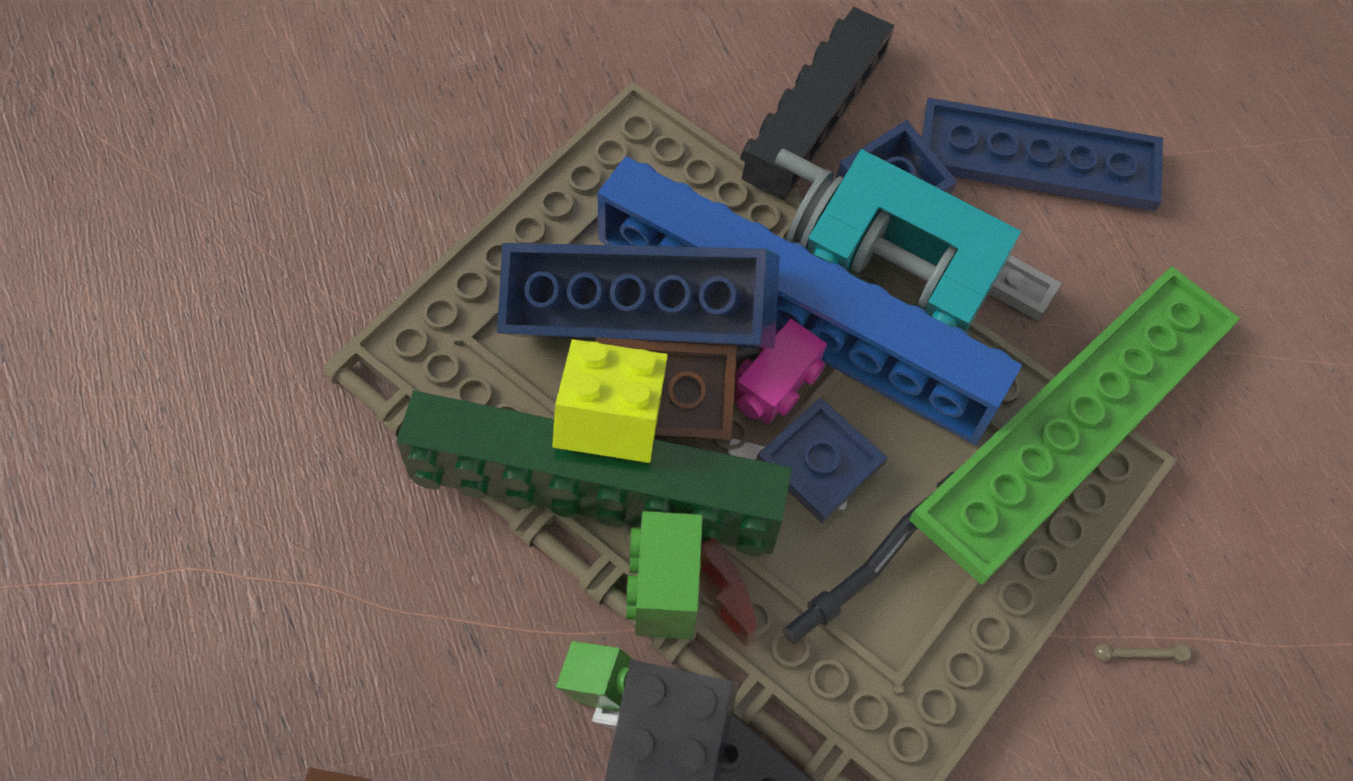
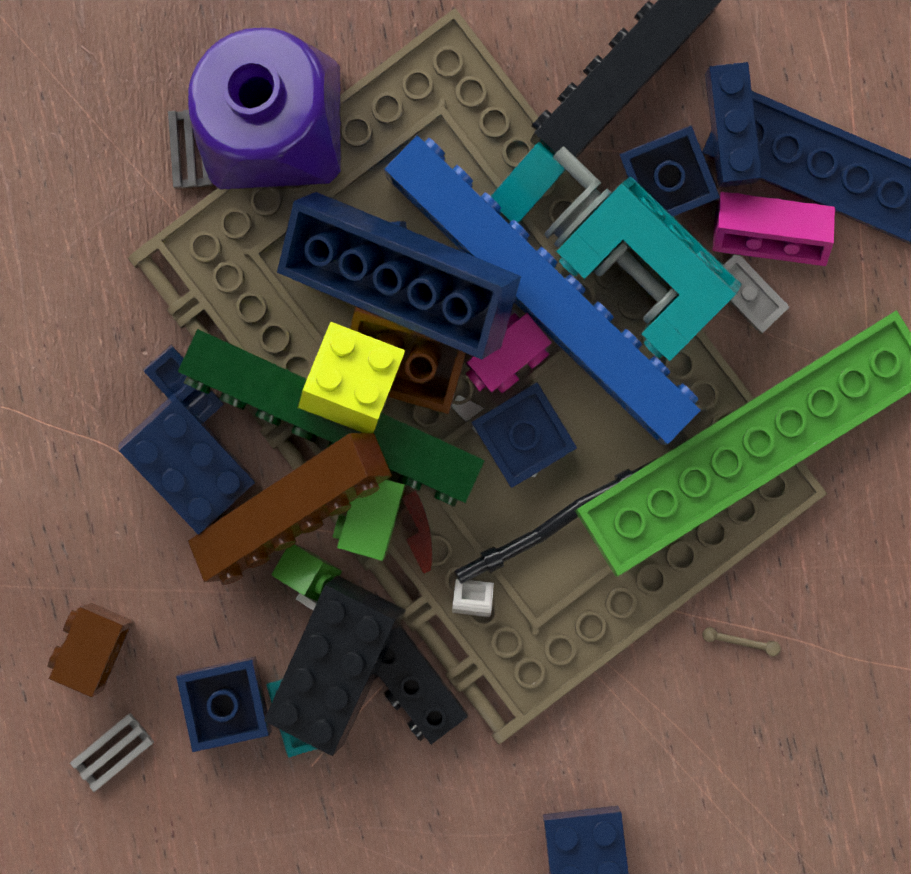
camera: 15 degrees right, 25 degrees up
(372, 229) = (173, 117): none -> flat silver tile
(411, 505) = (165, 375): none -> dark blue slope
(424, 572) = (186, 463): none -> dark blue brick
(452, 183) = (285, 139): none -> dark purple piece
(563, 581) = (290, 508): none -> reddish brown brick
(759, 193) = (528, 183): none -> teal tile
(814, 662) = (473, 598): none -> white slope
(946, 118) = (733, 124): none -> dark blue brick
(1037, 208) = (773, 228): none -> dark pink brick

